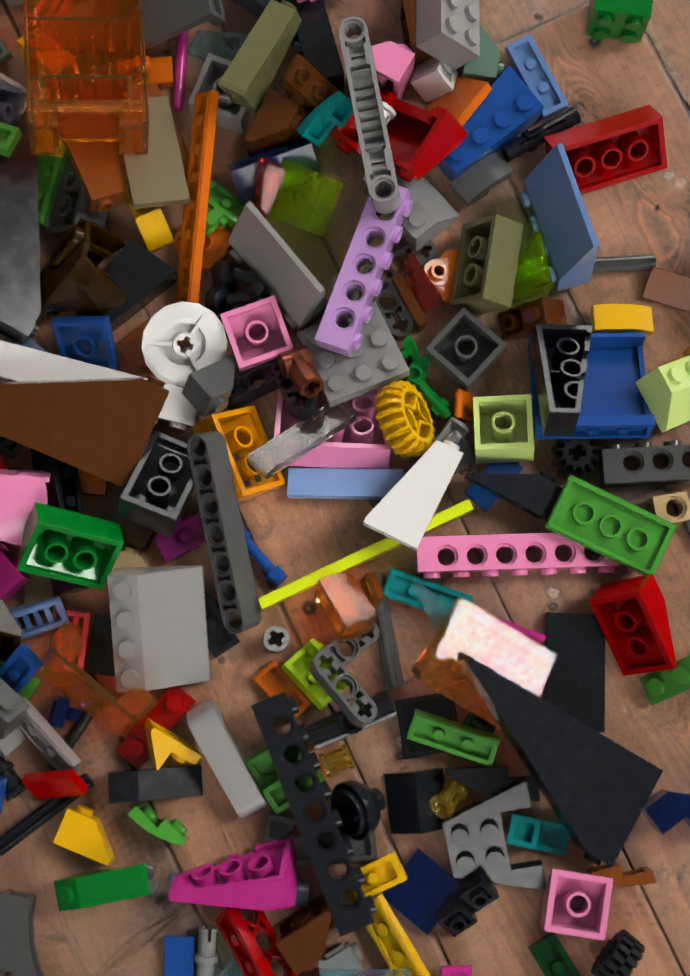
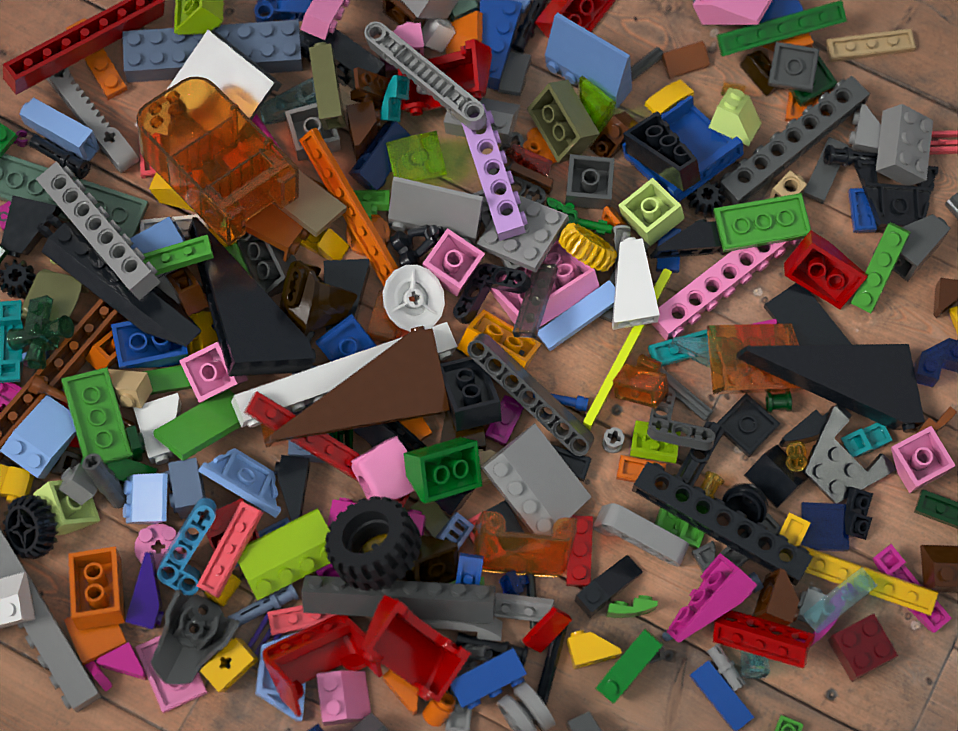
camera: 45 degrees left, 10 degrees down
(165, 743) = (597, 552): yellow slope -> none
(211, 386) = (452, 311): dark grey slope -> none
(268, 184) = (388, 164): clear red slope -> none
(299, 367) = (497, 259): copper piece -> none
(453, 737) = (769, 417): bright green tile -> none

